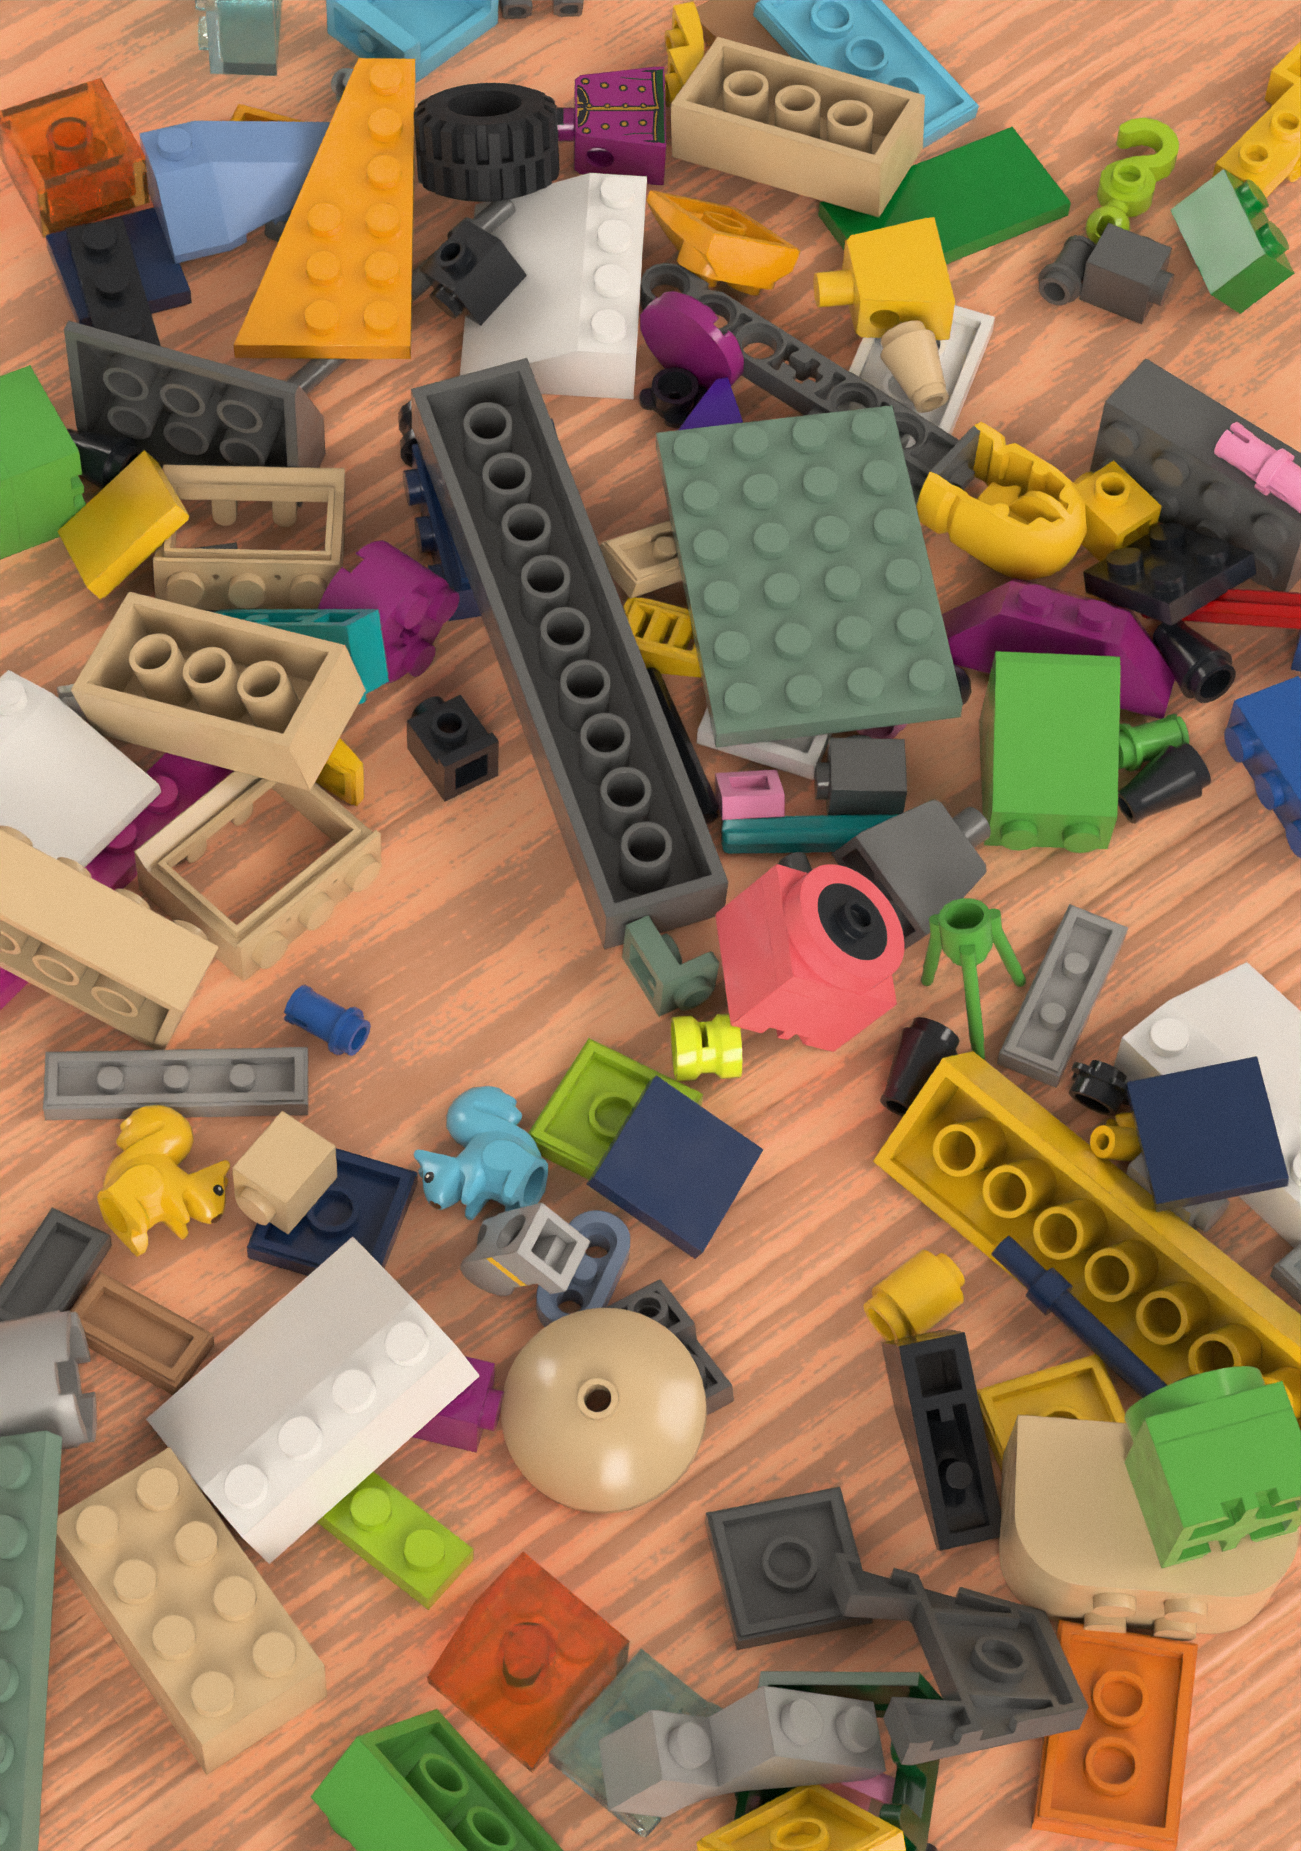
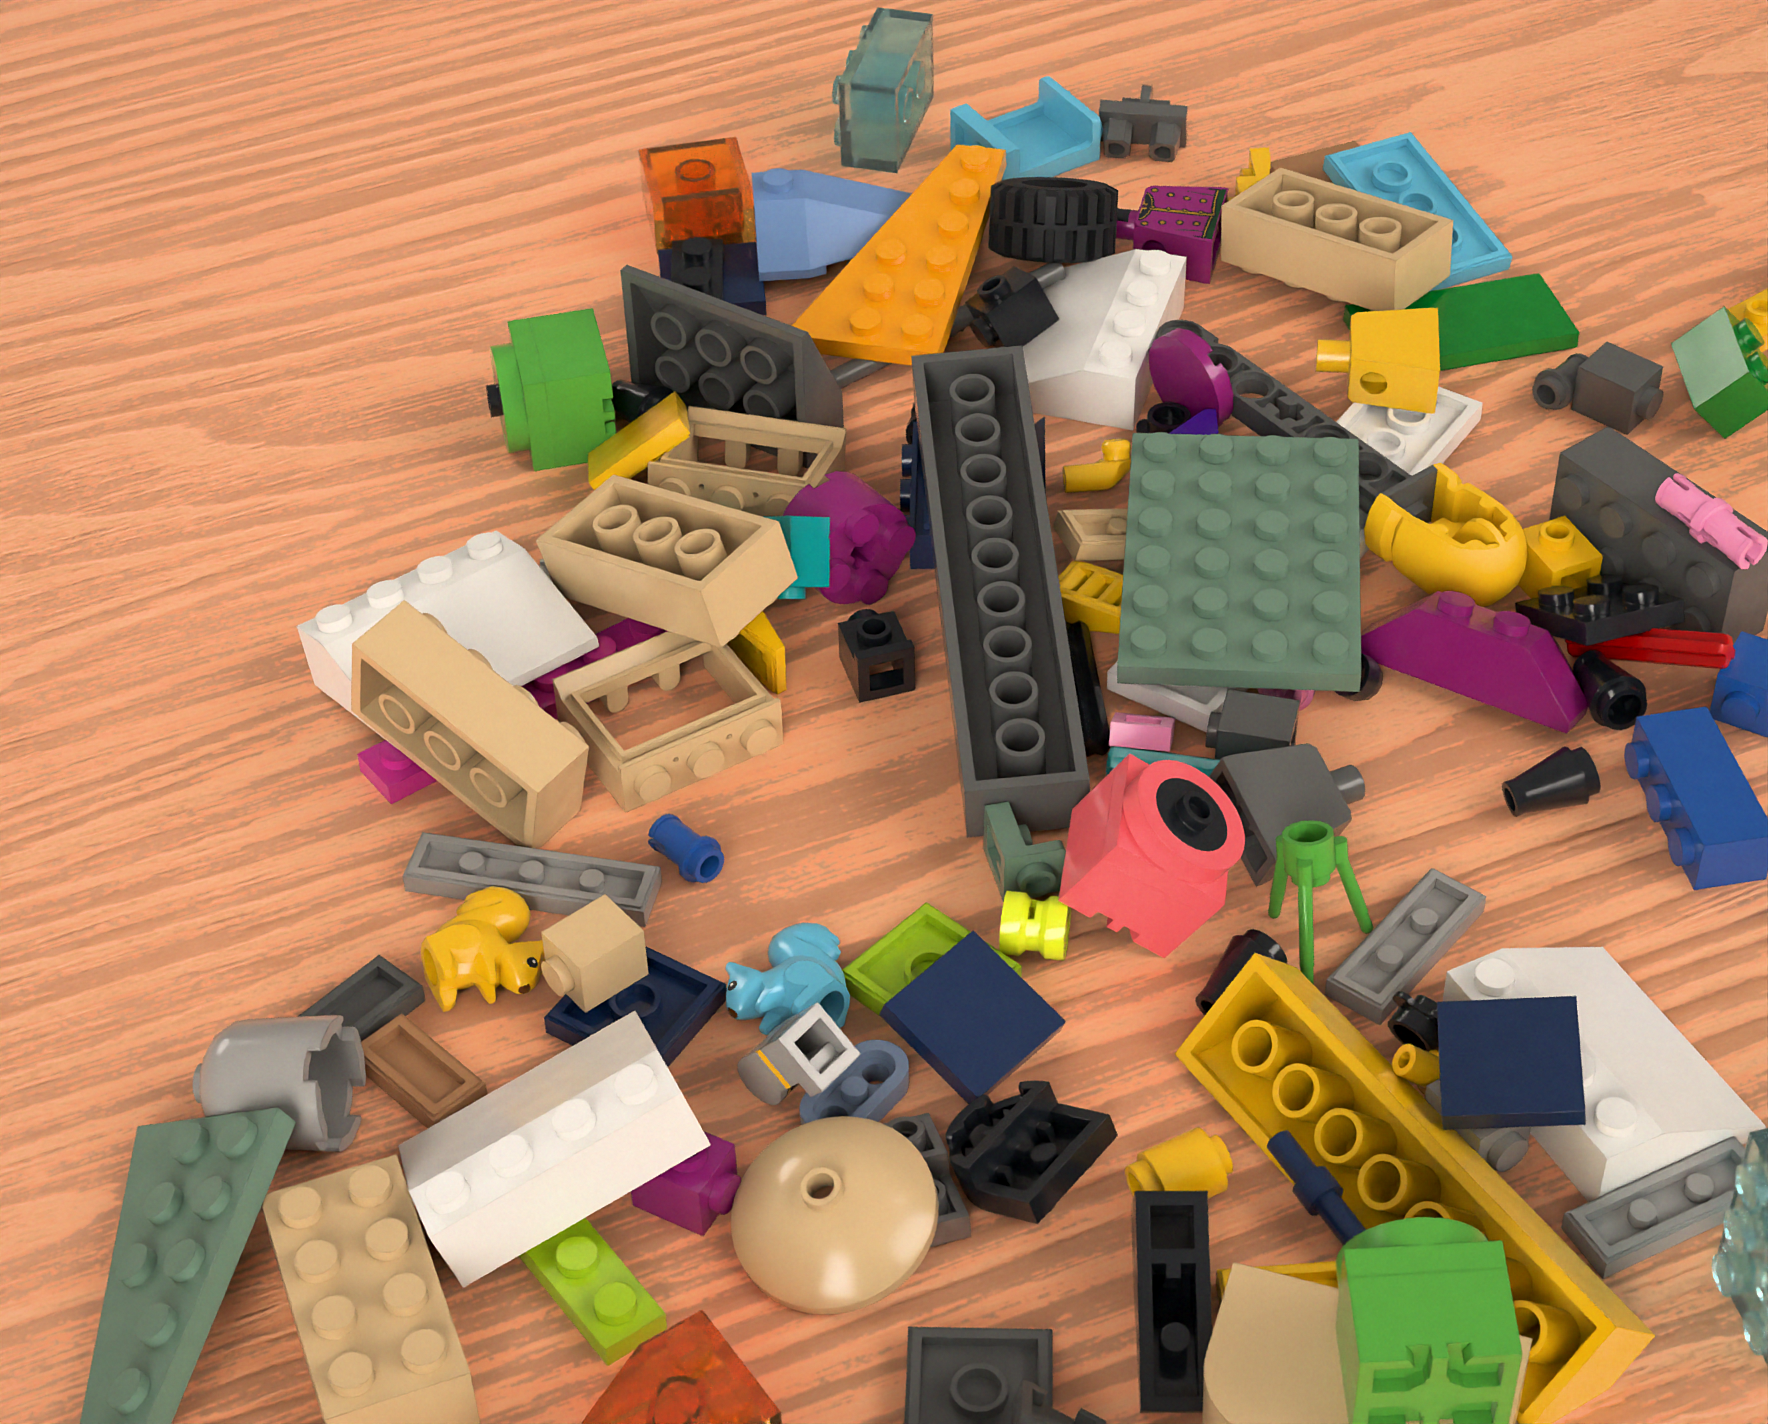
camera: 20 degrees right, 15 degrees down
(622, 465) = (1103, 473): none -> yellow arm
(723, 243) = (1244, 319): light orange slope -> none
(763, 1302) = (1024, 1150): none -> black slope
(915, 363) = (1393, 419): tan cone -> none
(1050, 750) = (1441, 731): bright green slope -> none
(1130, 183) = (1640, 324): lime piece -> none
(1147, 740) = (1530, 747): bright green pin -> none

